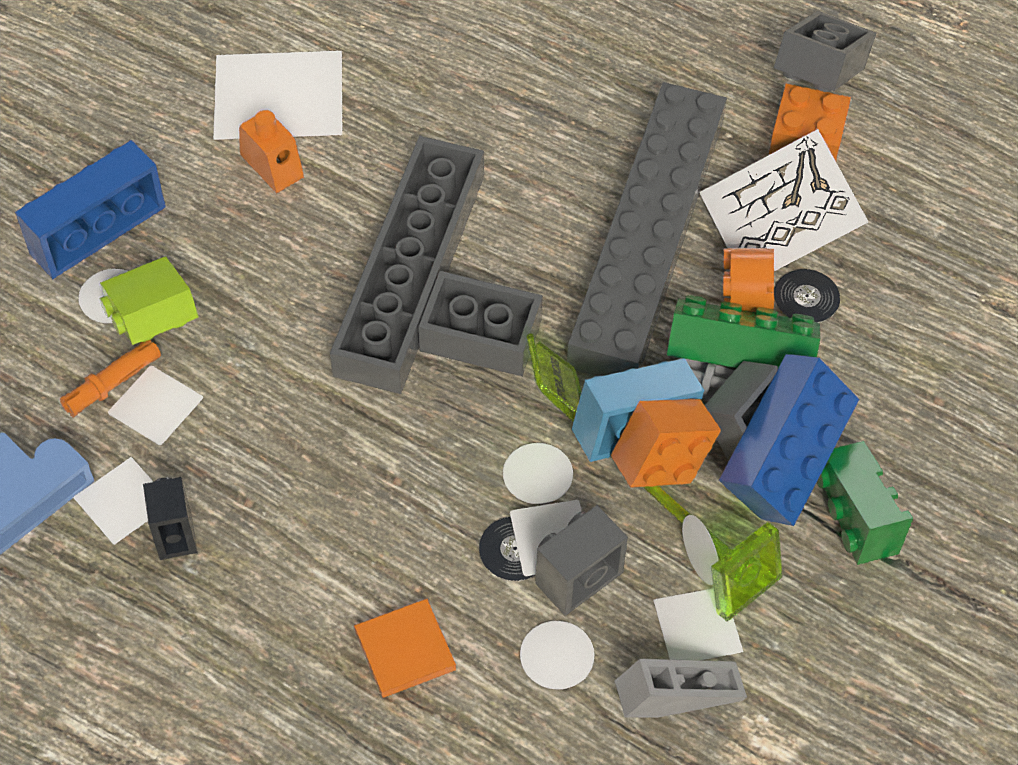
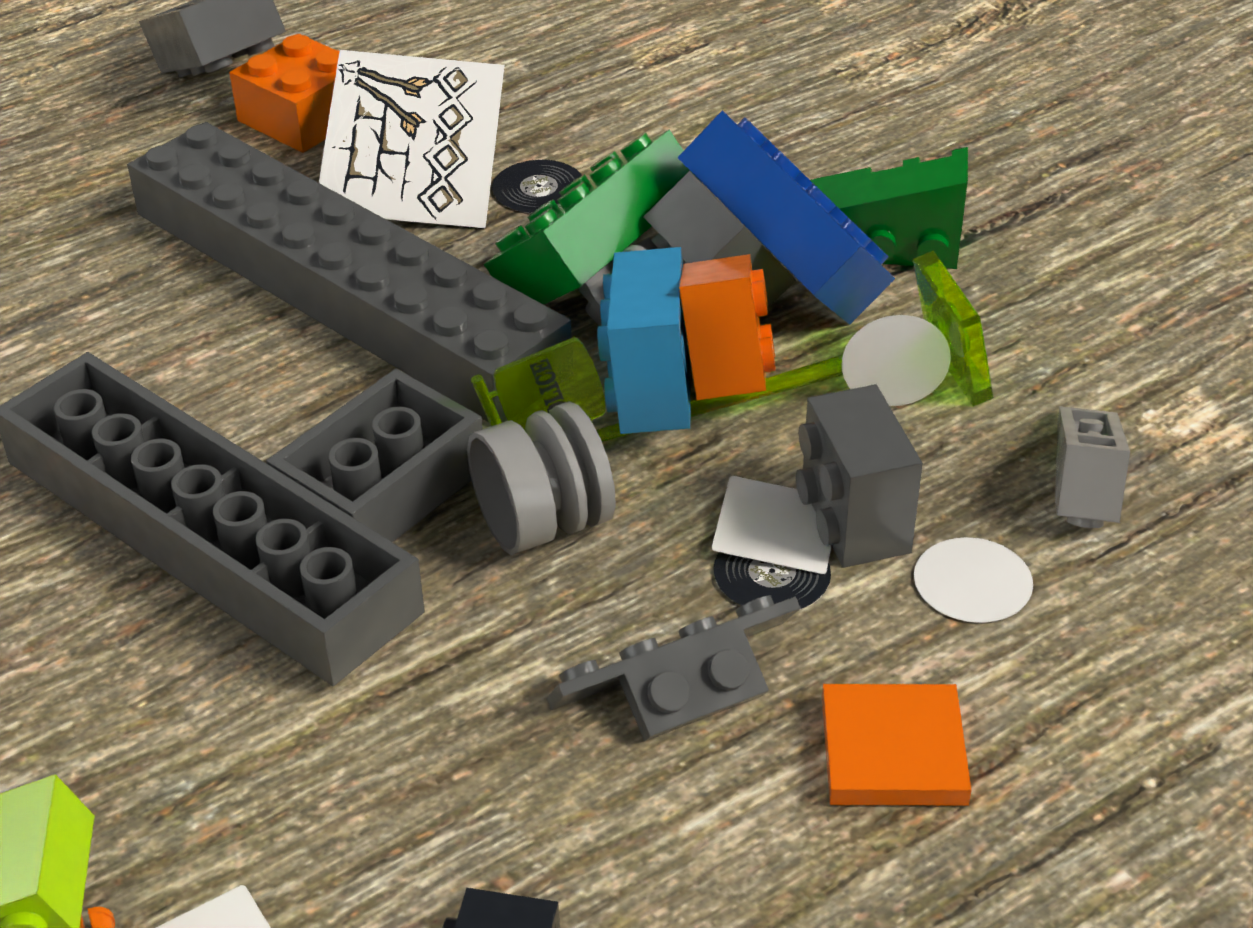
camera: 65 degrees left, 15 degrees down
(405, 532) = (686, 678): none -> dark grey bracket
(500, 402) = (541, 477): none -> light grey wheel
(538, 473) = (660, 509): white sticker -> none
(694, 628) = (991, 434): white sticker -> none
(749, 278) = (501, 190): orange brick -> none

